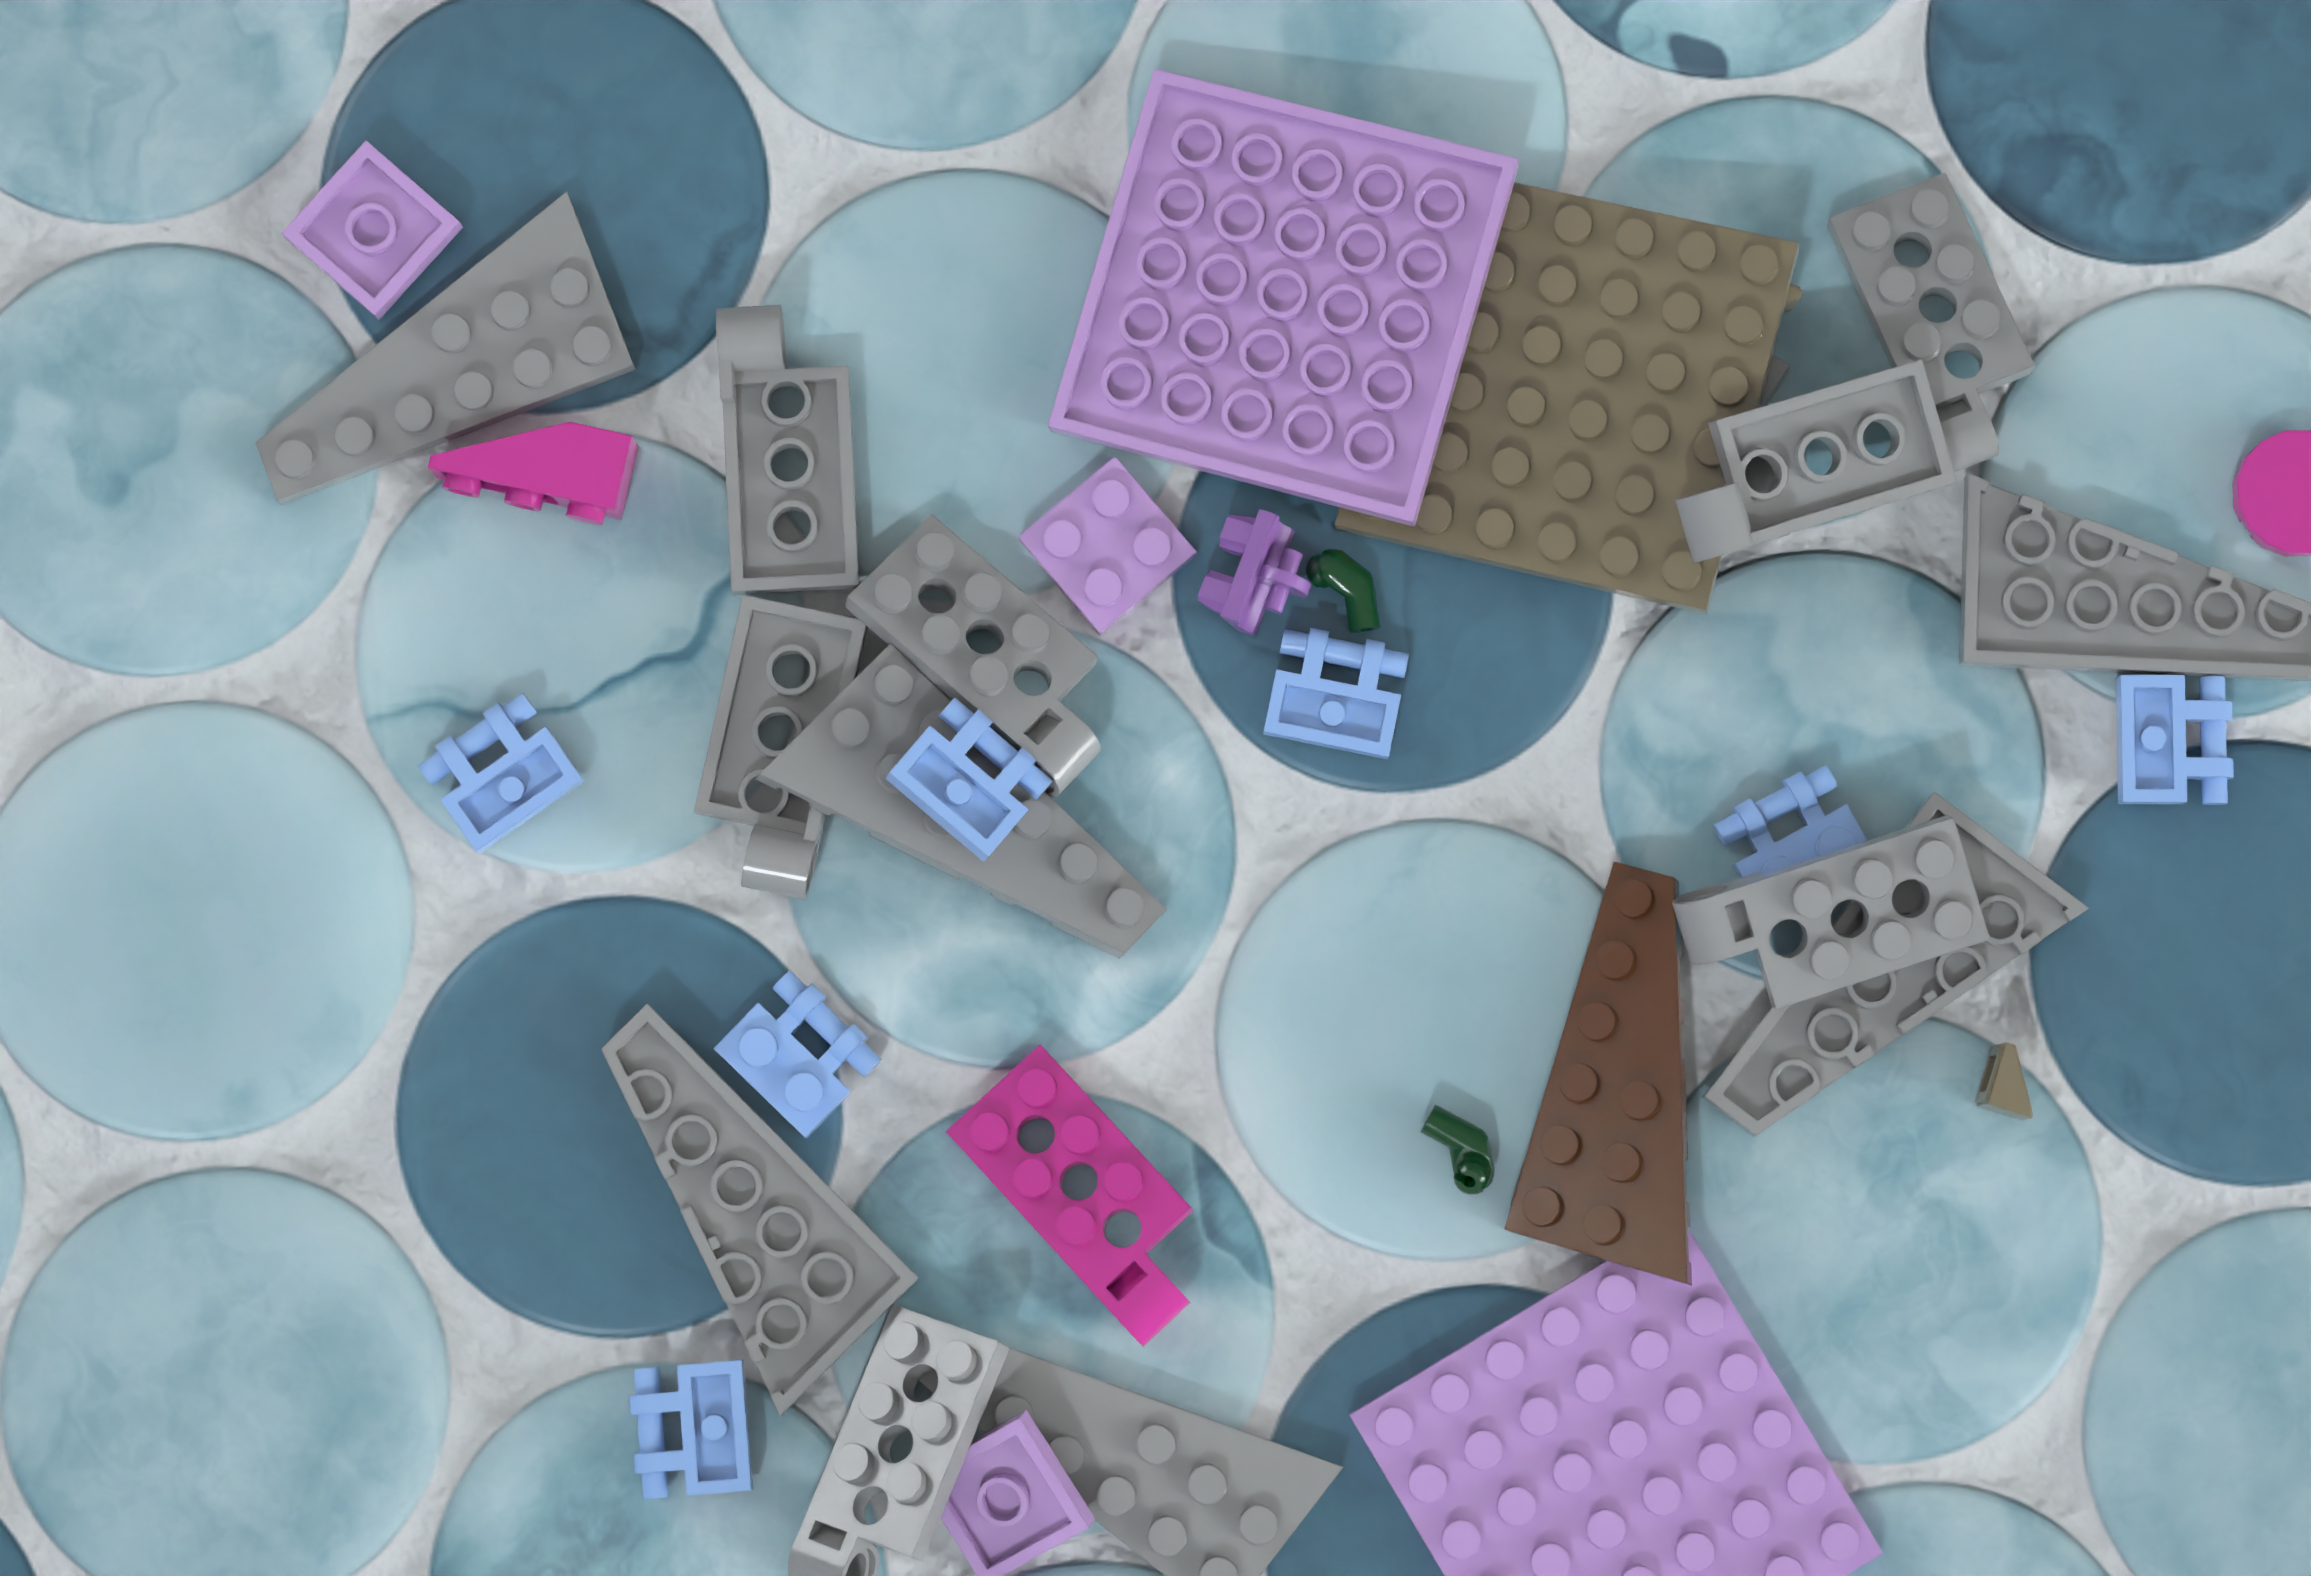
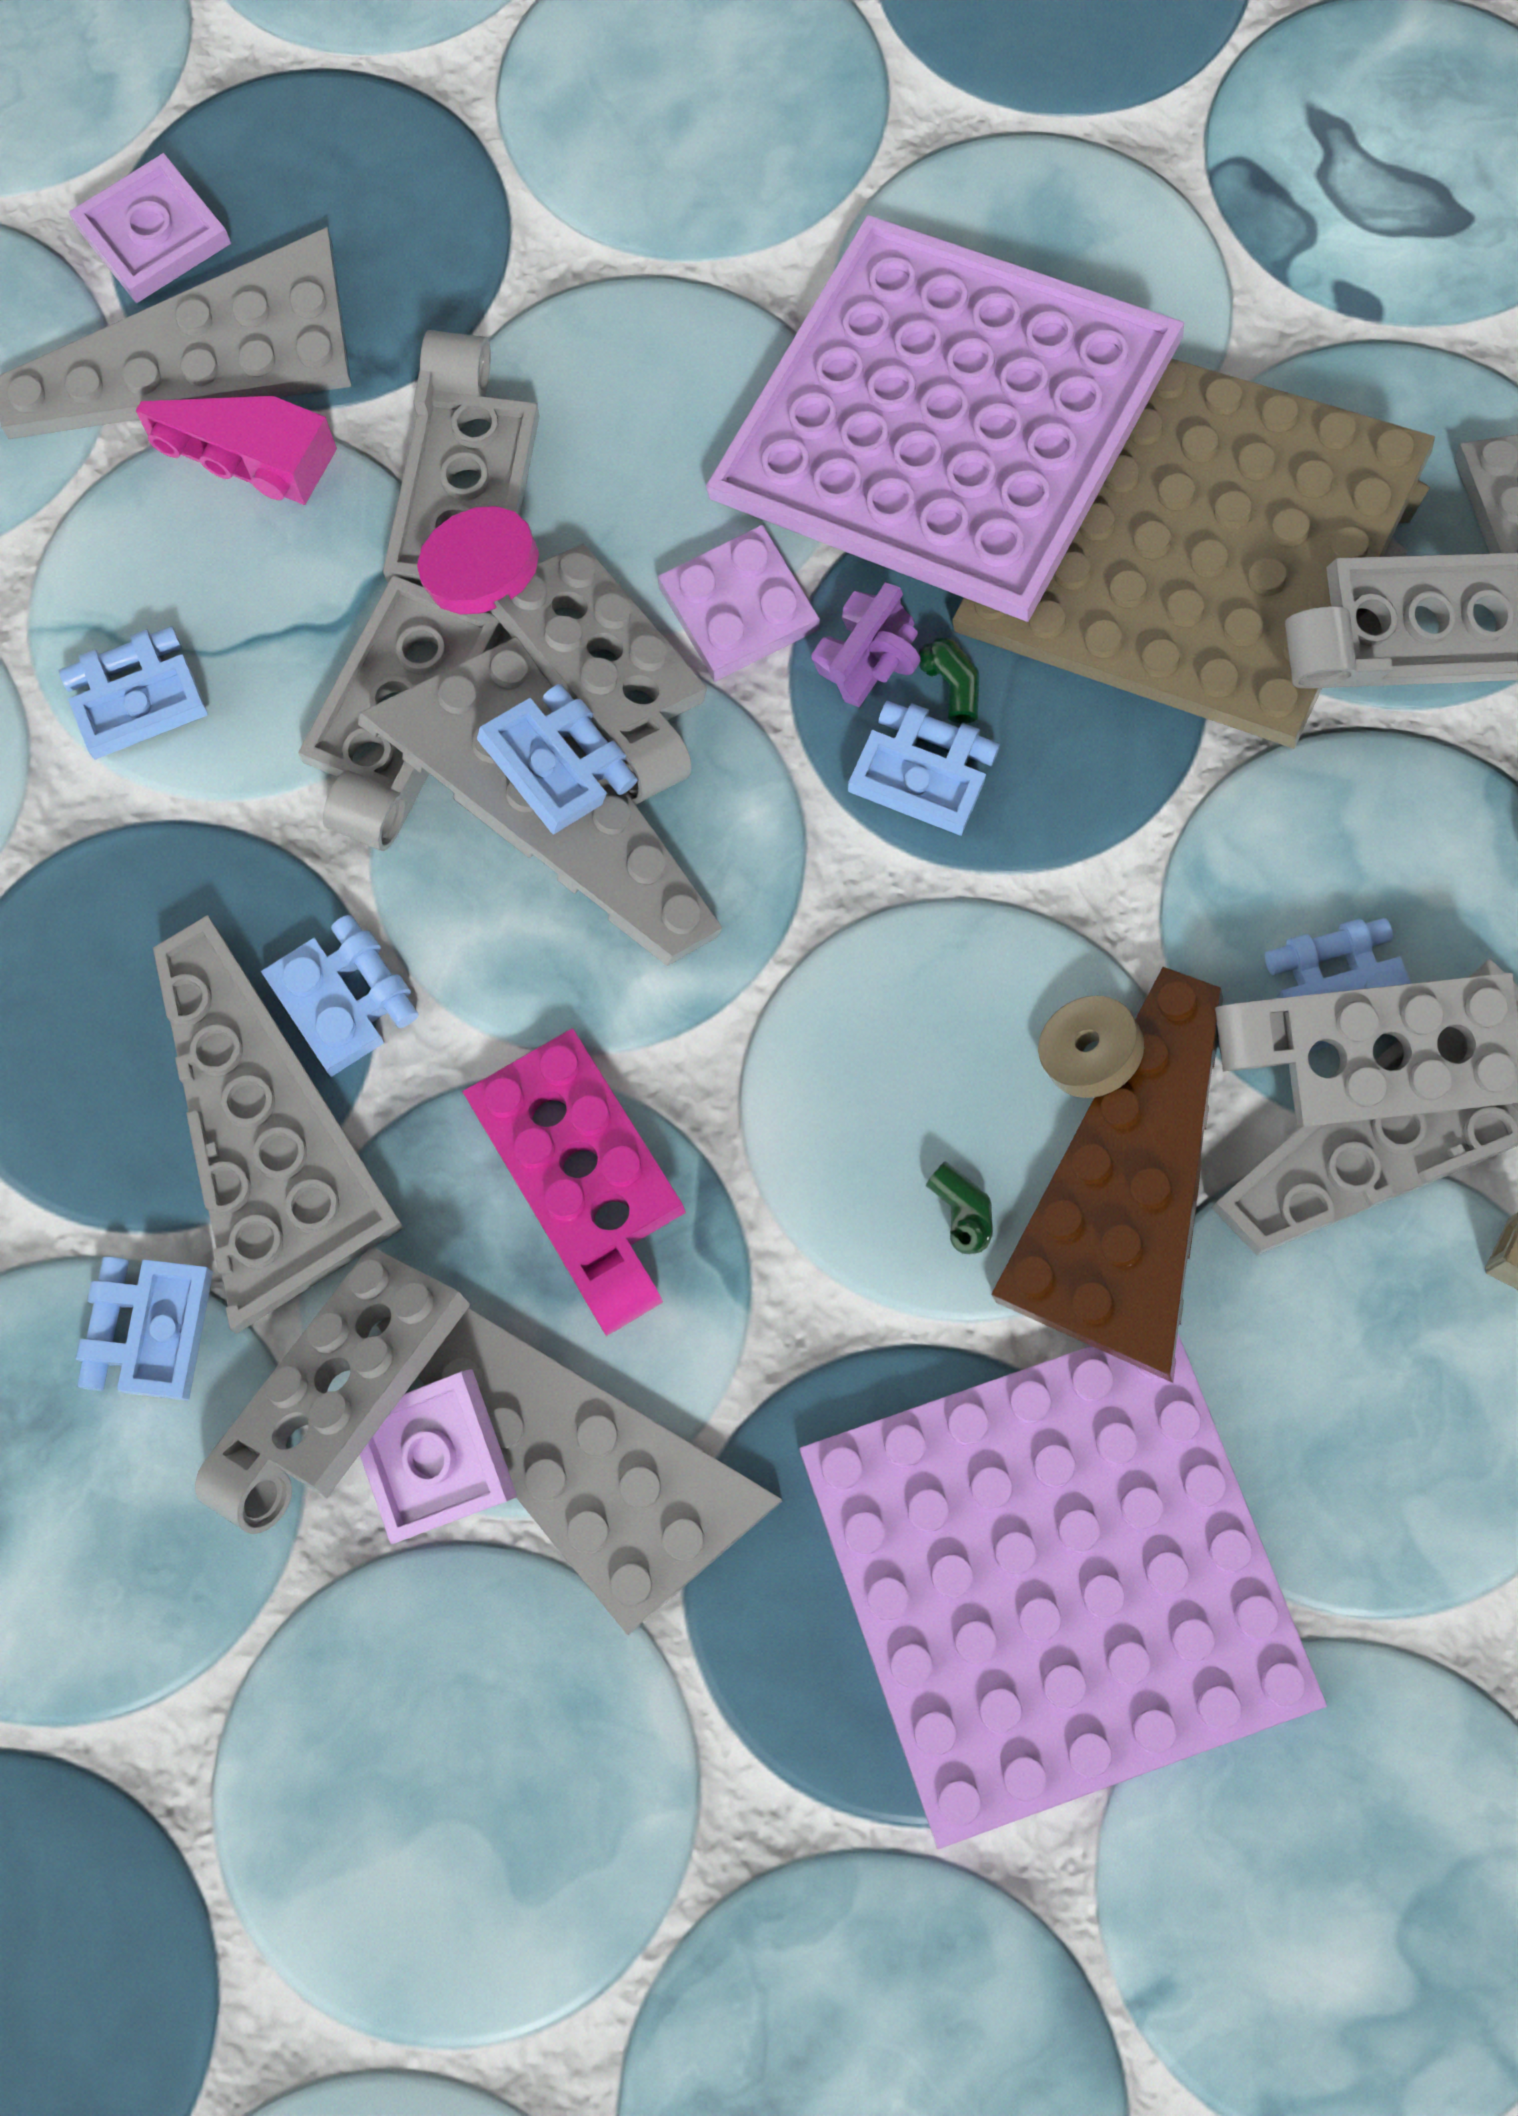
camera: 15 degrees right, 10 degrees down
(834, 571) = (478, 559): none -> dark pink tile
(1583, 967) = (1106, 1065): none -> dark tan piece

